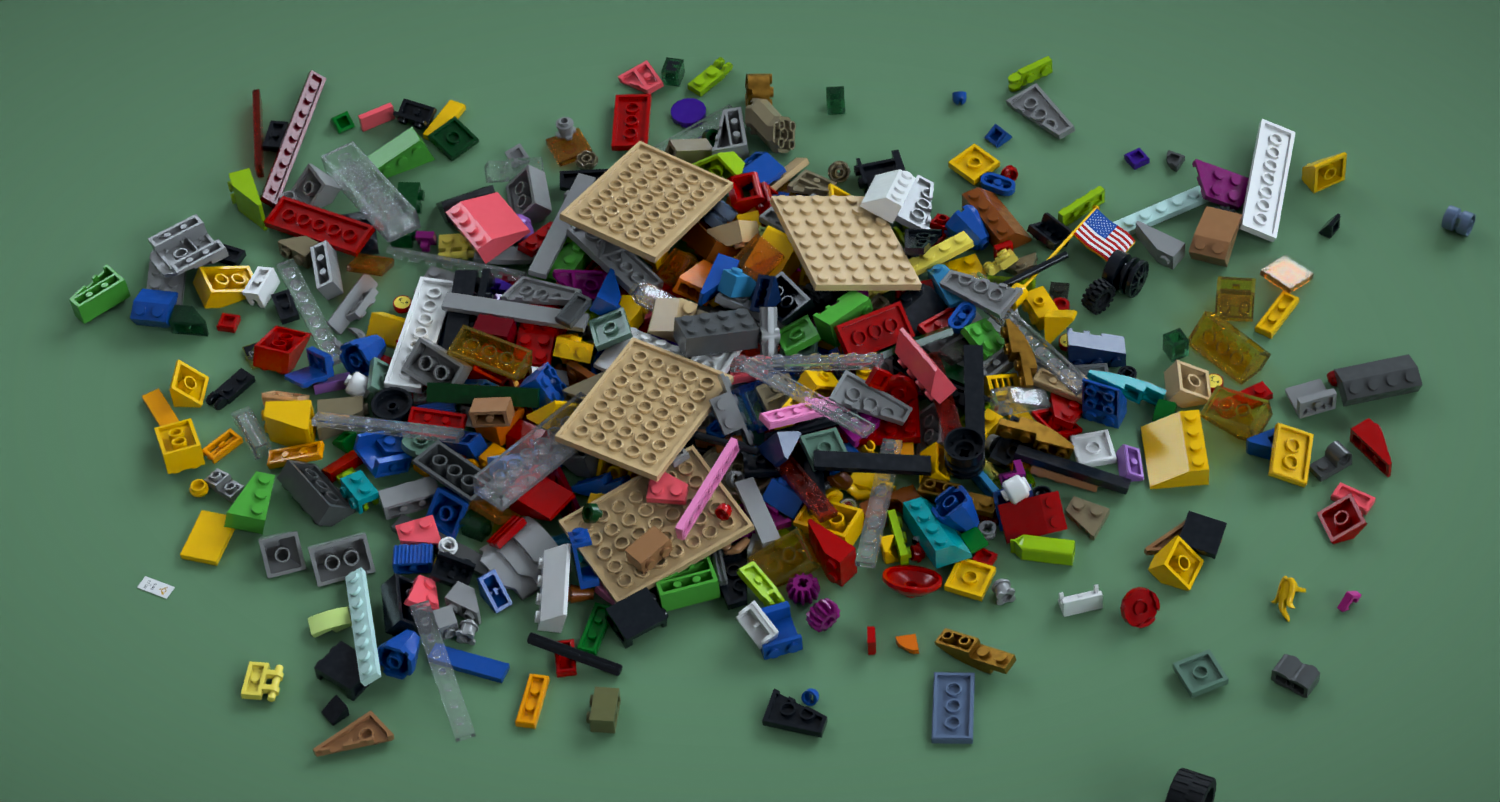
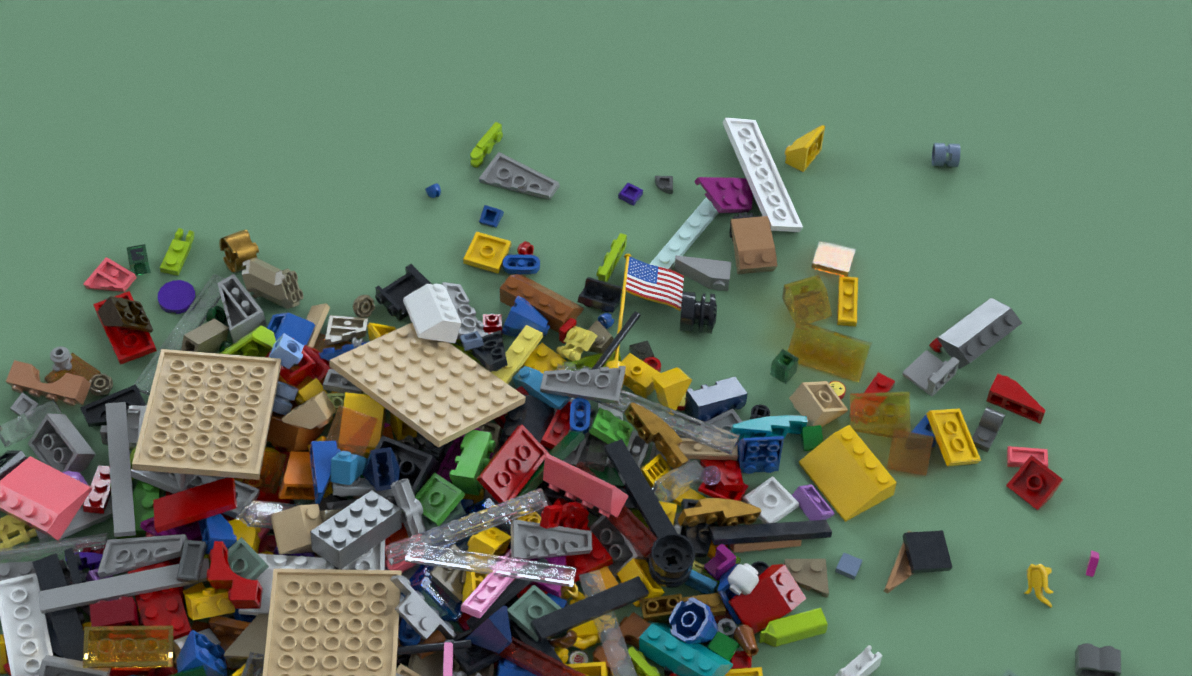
camera: 35 degrees left, 5 degrees up
(558, 152) = (69, 388): none -> nougat arch
(598, 345) = (242, 591): none -> red arch
(601, 269) = (194, 504): none -> red tile
(634, 110) = (124, 315): none -> dark brown slope
(743, 179) = (287, 350): none -> light blue brick
(835, 100) = (318, 234): clear green brick -> none
(909, 227) = (471, 340): none -> sand blue tile
(997, 539) = (745, 637): none -> dark orange cone
(1042, 254) = (606, 320): none -> blue hinge
(1048, 405) = (715, 475): none -> clear purple plate
(1098, 296) = (686, 344): black tyre -> none
(1127, 522) = (848, 566): none -> sand blue tile
(1139, 607) = (919, 652): red tile -> none
(1176, 564) = (922, 593): yellow slope -> none
(1242, 452) = (910, 452): none -> clear orange tile
(1331, 226) = (839, 198): black slope -> none

